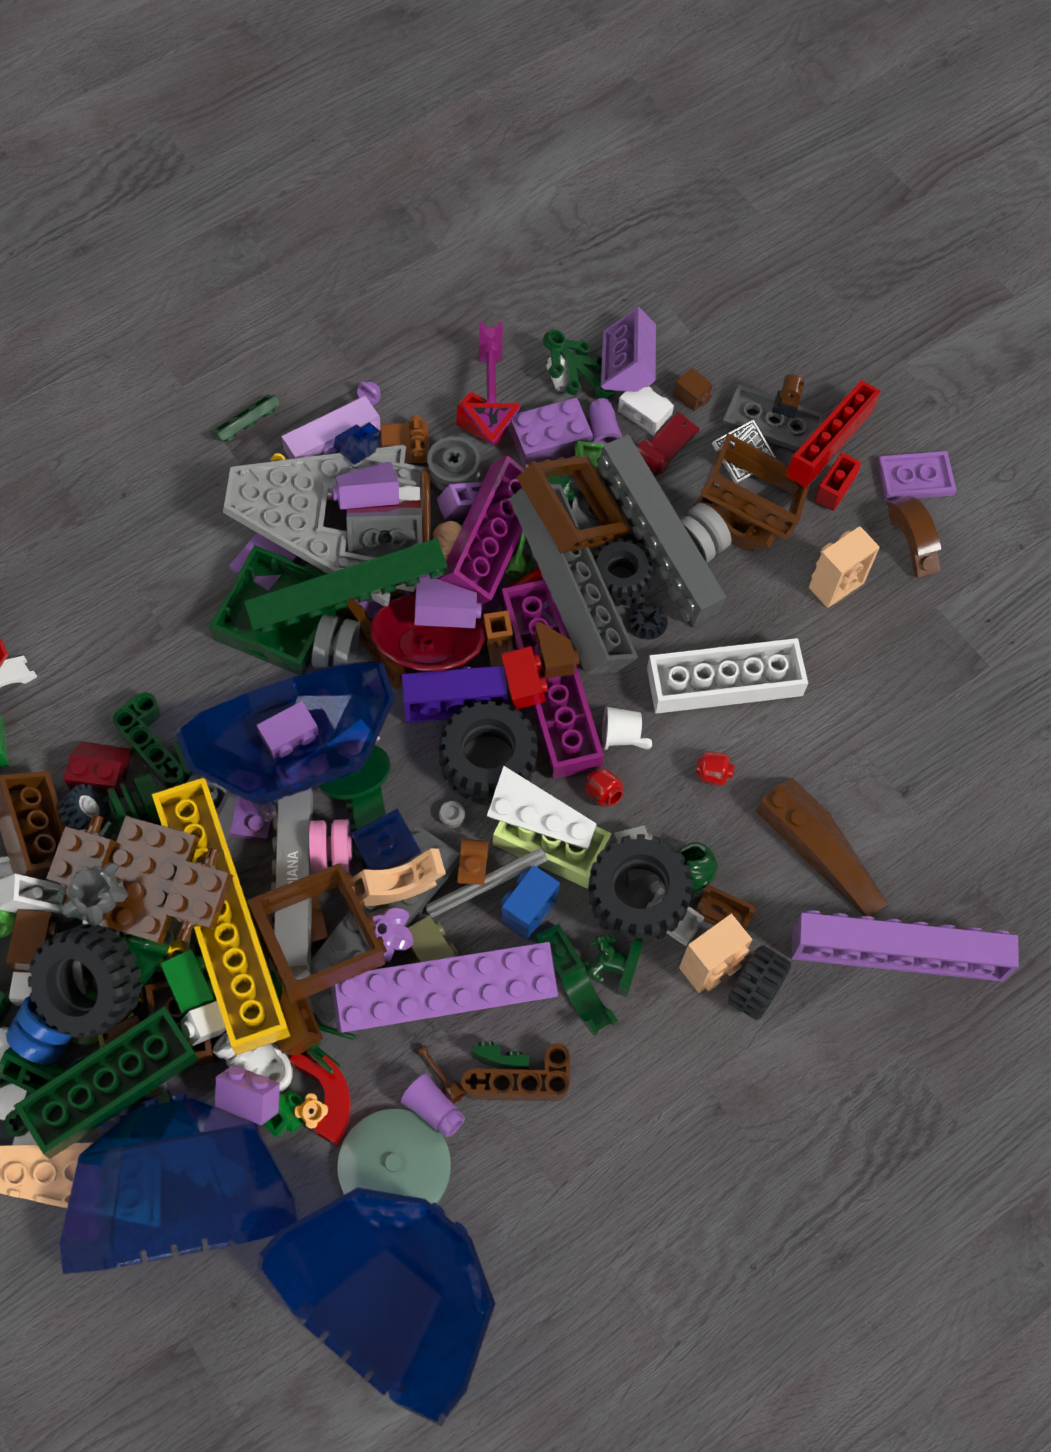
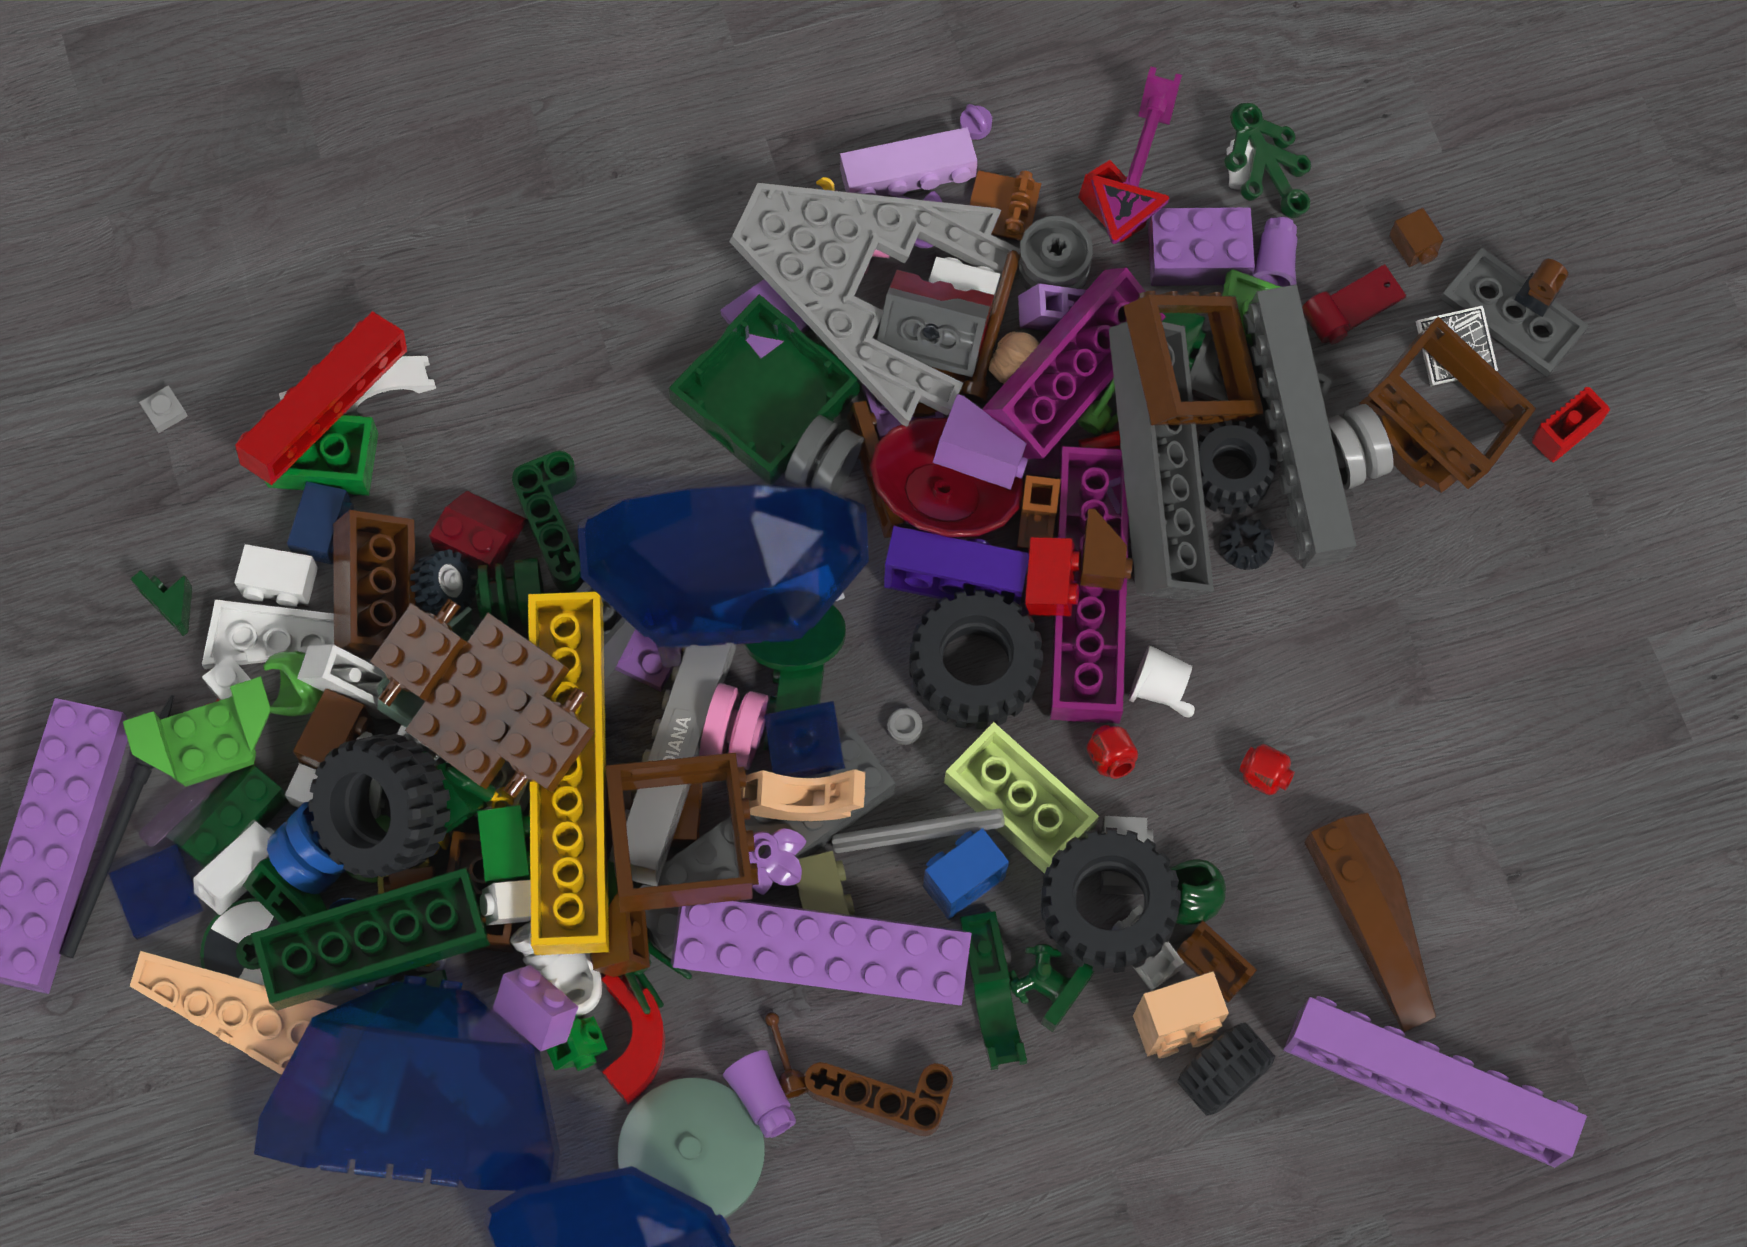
camera: 20 degrees right, 5 degrees up
(95, 893) = (421, 701): dark grey hair -> none
(245, 418) = (802, 113): dark green plate -> none
(288, 730) = (729, 554): medium lavender brick -> none
(319, 1111) = (607, 1062): light orange plate -> none
(346, 585) = (860, 386): dark green brick -> none
(357, 442) = (935, 191): clear blue piece -> none
(367, 487) = (928, 259): medium lavender slope -> none
(473, 861) = (909, 798): dark orange brick -> none
(490, 1055) = (855, 1051): dark green slope -> none
(535, 810) = (1004, 753): white wing -> none
(629, 353) = (1343, 163): medium lavender slope -> none
(646, 409) = (1342, 245): white brick -> none
(726, 675) = (1325, 650): white brick -> none
(833, 433) = (1585, 356): red brick -> none
(843, 566) = (1532, 547): light nougat brick -> none
(916, 475) = (1686, 445): medium lavender tile -> none
(920, 532) = (1657, 523): reddish brown arch -> none

